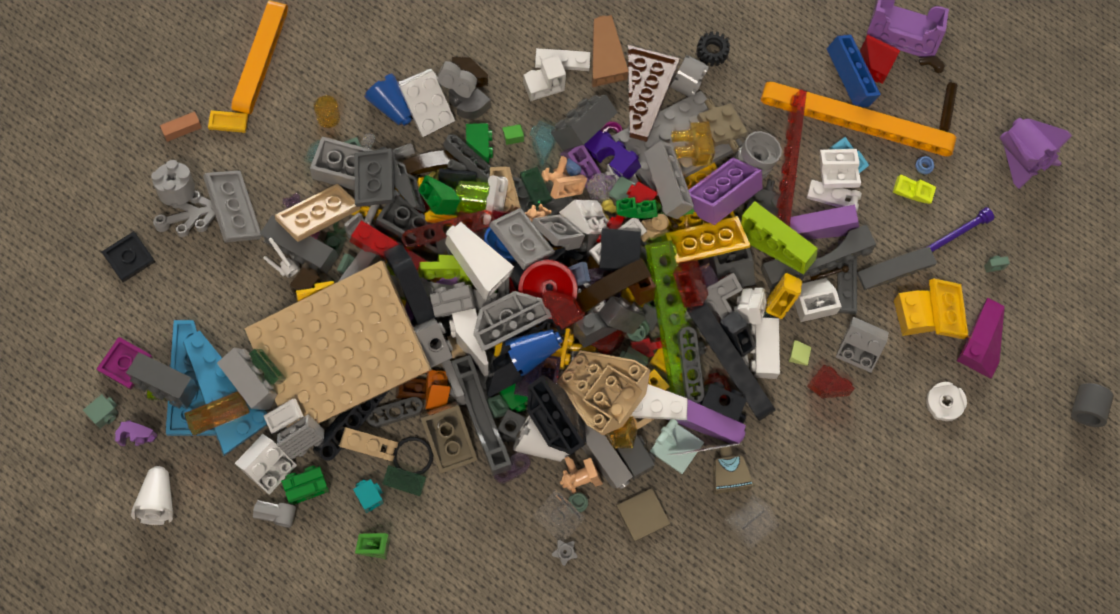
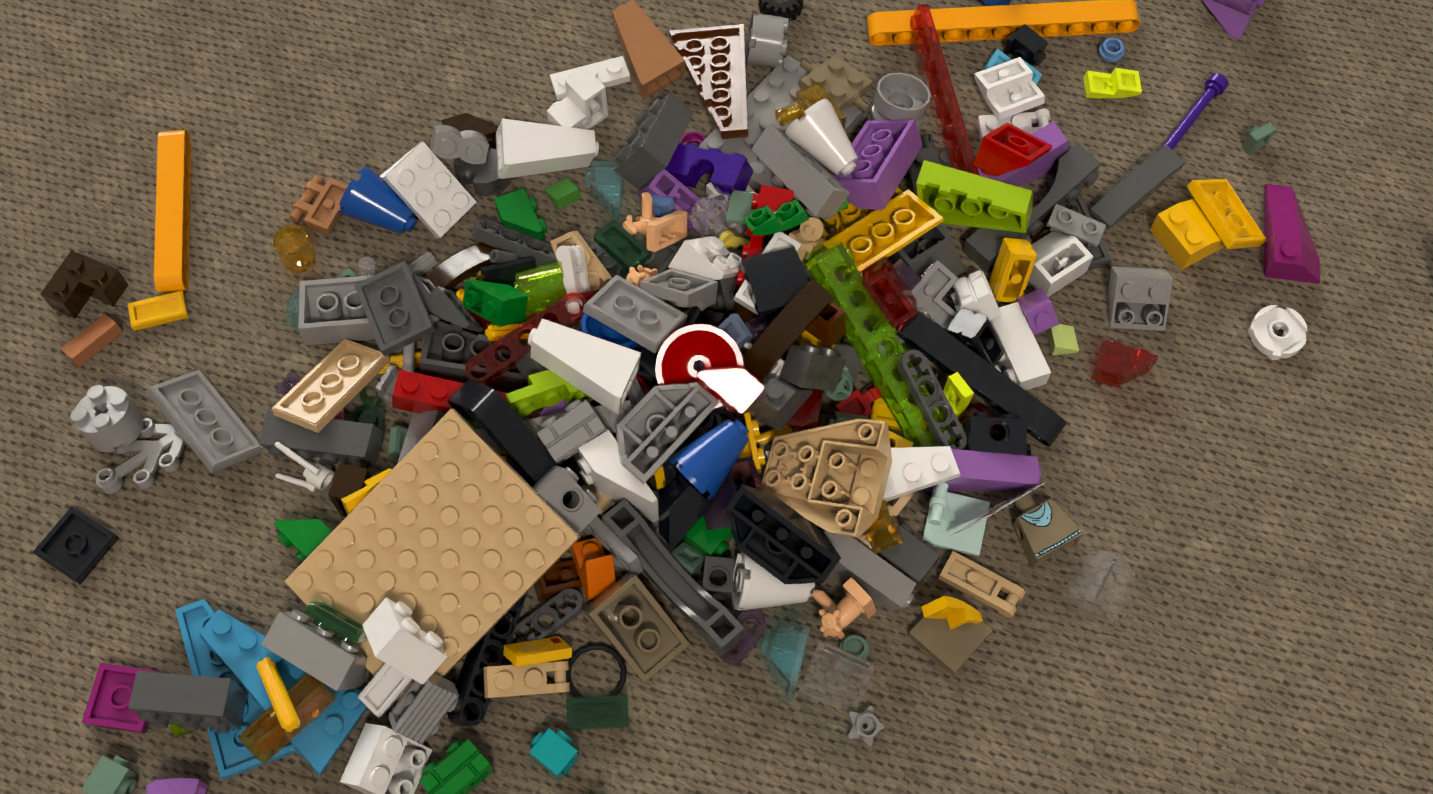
camera: 15 degrees left, 5 degrees down
(187, 84) = (79, 280): none -> dark brown brick
(216, 397) = (278, 695): none -> yellow axle
(267, 303) = (302, 534): none -> green slope
(299, 394) = (402, 643): none -> white brick
(354, 93) = (325, 210): none -> medium nougat plate
(381, 429) = (537, 651): none -> yellow tile
(509, 100) = (542, 148): none -> white slope
(532, 490) = (784, 656): none -> clear light blue slope
(650, 503) = (953, 610): none -> yellow slope
(675, 492) = (981, 584): none -> tan plate
(692, 164) = (824, 138): none -> white cone
(709, 366) = (957, 393): none -> neon yellow slope
(789, 329) = (1038, 311): none -> medium lavender brick
(816, 214) = (1009, 150): none -> red slope
(840, 280) = (1075, 224): none -> light grey hinge
(866, 142) = (1027, 45): none -> black brick

